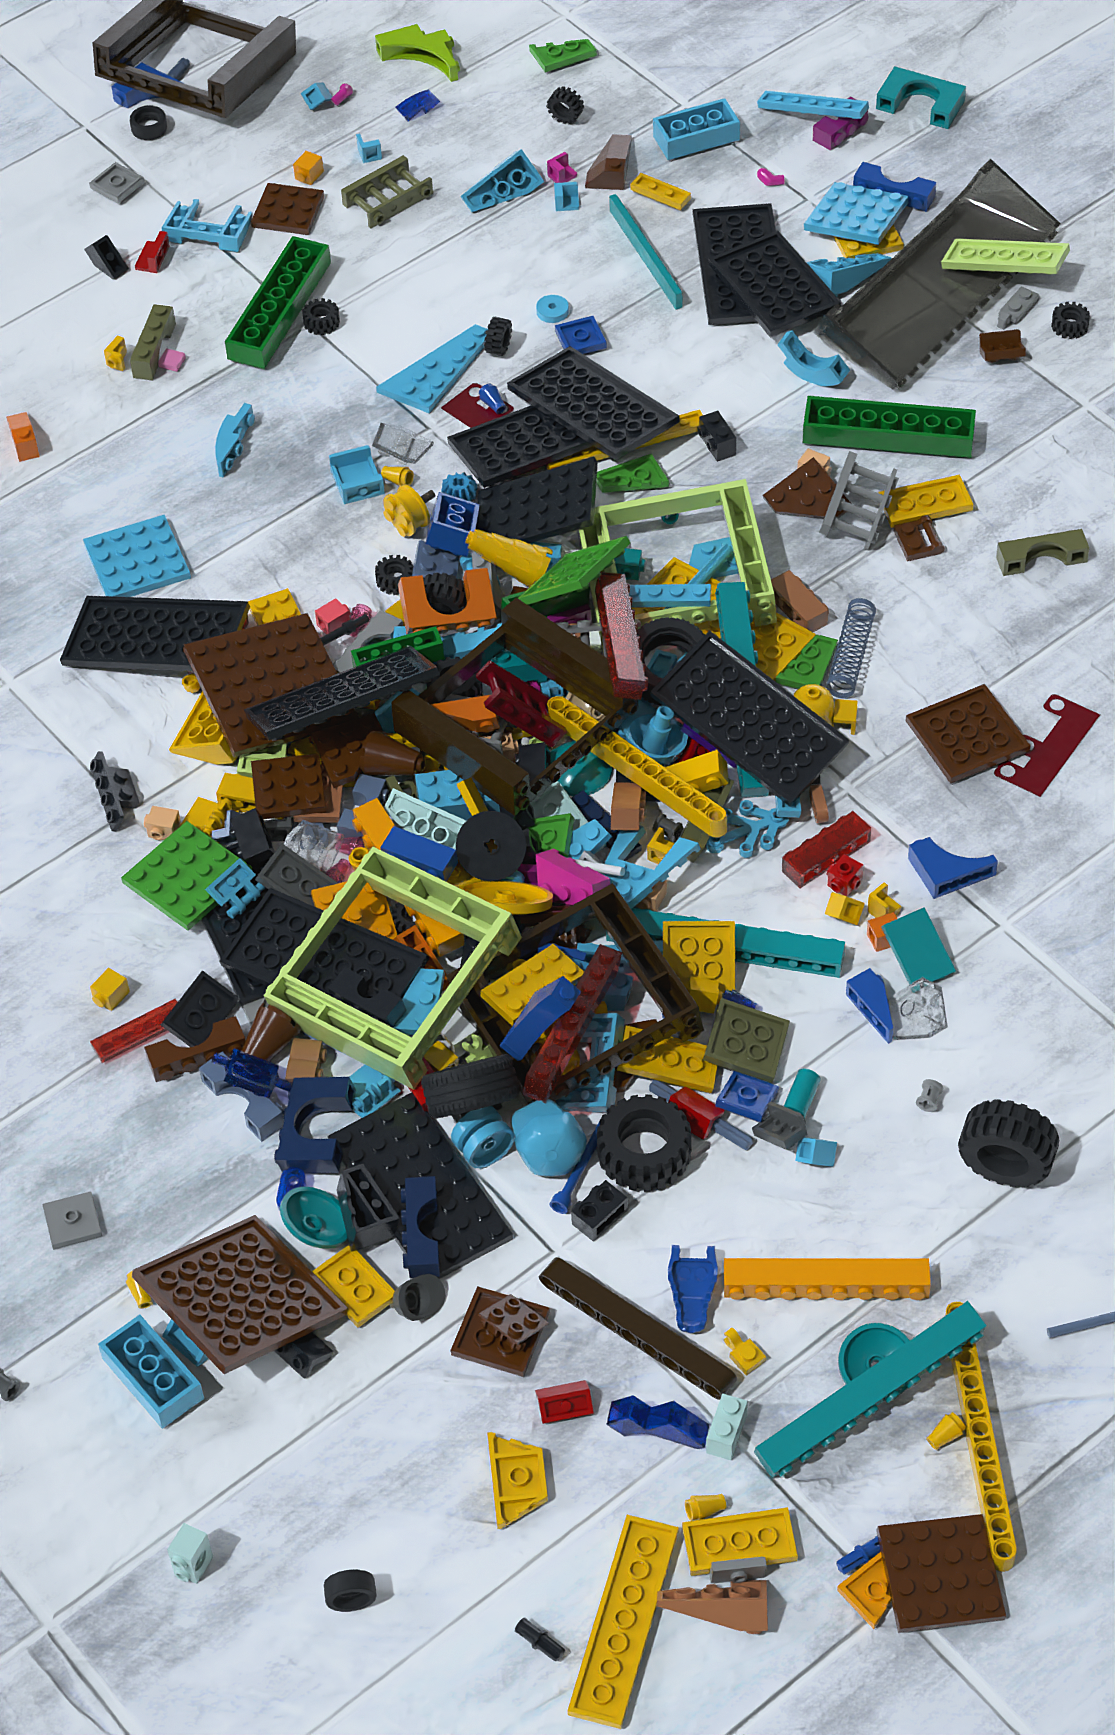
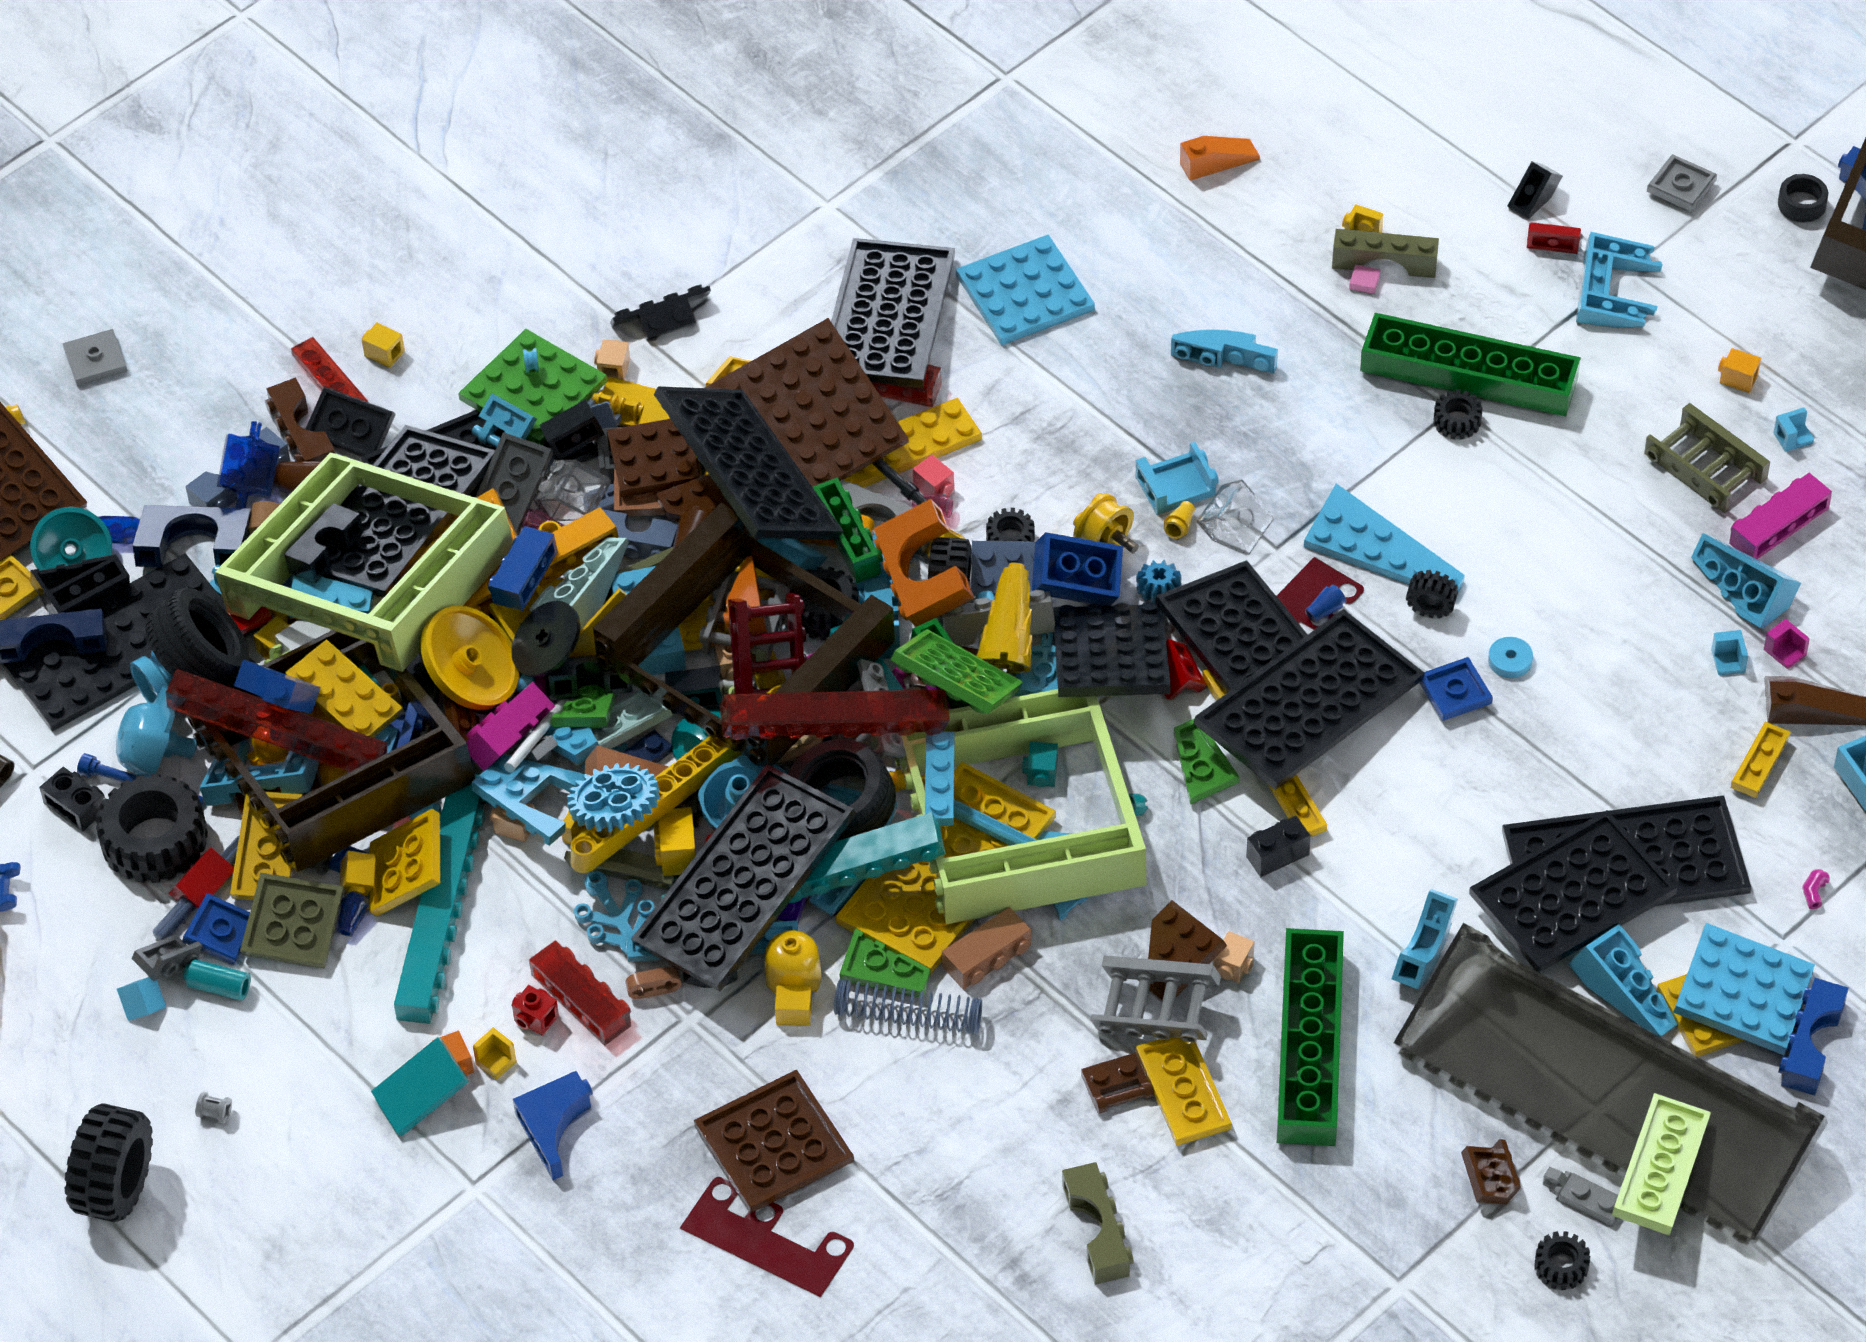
camera: 85 degrees right, 0 degrees up
(170, 863) = (531, 360): none -> medium azure bush
(287, 208) = (1664, 361): reddish brown plate -> none
(447, 160) = (1780, 516): none -> dark pink brick
(646, 252) = (1630, 748): teal tile -> none
(673, 790) = (613, 797): none -> medium azure gear
(844, 908) = (490, 1014): yellow panel -> none
(870, 997) = (348, 1047): blue slope -> none
(918, 1011) = (333, 1094): clear slope -> none

